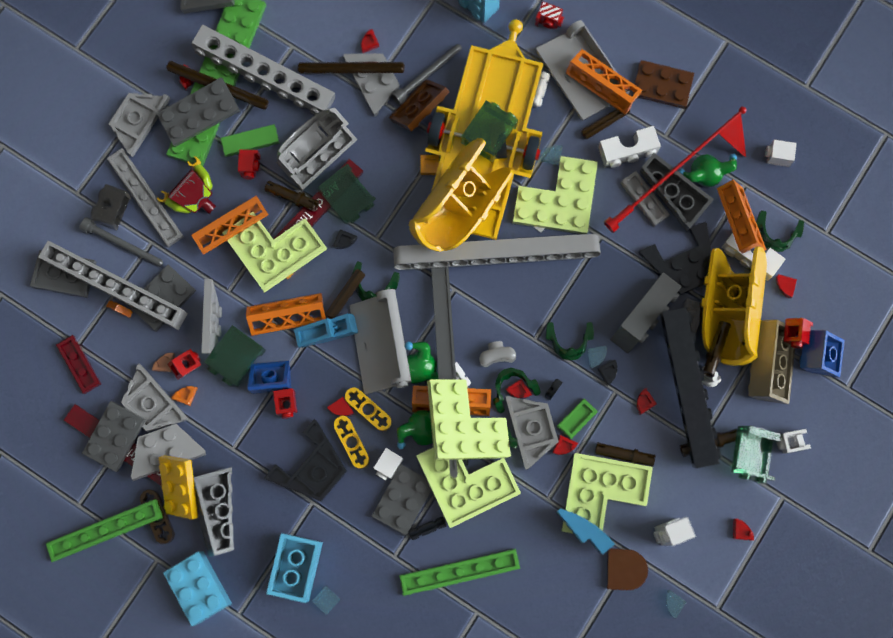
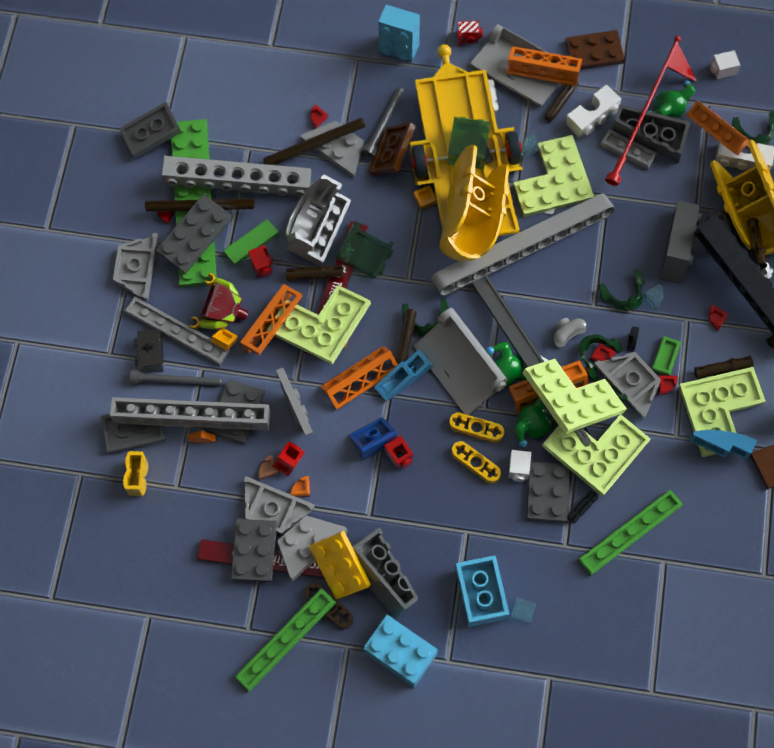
camera: 25 degrees left, 10 degrees down
(42, 321) = (134, 477): none -> yellow brick
(78, 364) = (186, 503): dark red tile -> none
(181, 224) = (224, 339): none -> light orange tile
(233, 356) = (331, 432): clear green panel -> none
(318, 472) = (459, 501): black wing -> none
(341, 408) = (451, 436): red tile -> none
(344, 240) = (380, 292): black tile -> none
(608, 372) = (672, 305): black tile -> none
(686, 268) = (696, 189): black wing -> none

